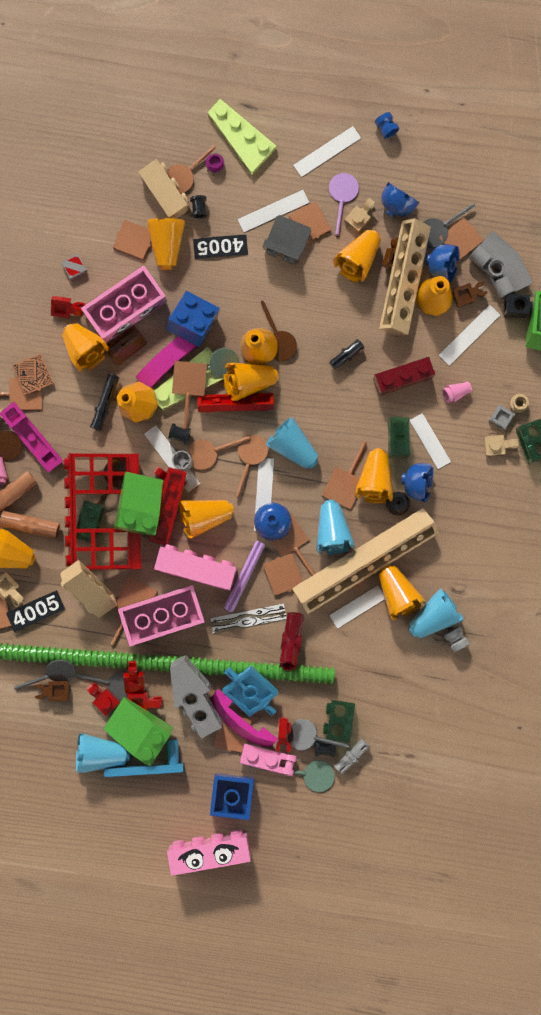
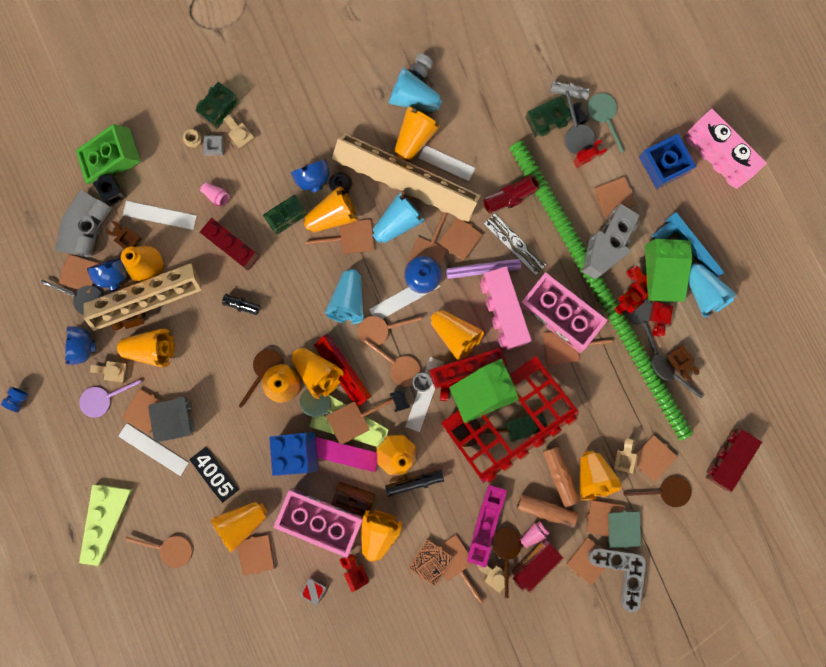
camera: 115 degrees left, 0 degrees up
(35, 611) = (628, 422): black sticker -> none
(88, 589) = (584, 387): tan brick -> none
(165, 189) = (192, 556): tan brick -> none
(198, 206) = (190, 516): black bush -> none
(215, 163) = (141, 528): magenta plate -> none
(238, 725) = (601, 215): dark pink slope -> none
(250, 691) = (574, 201): dark azure plate -> none
(267, 759) = (618, 154): bright pink plate -> none
(327, 151) = (70, 437): white sticker -> none
(430, 441) = (271, 190): white sticker -> none

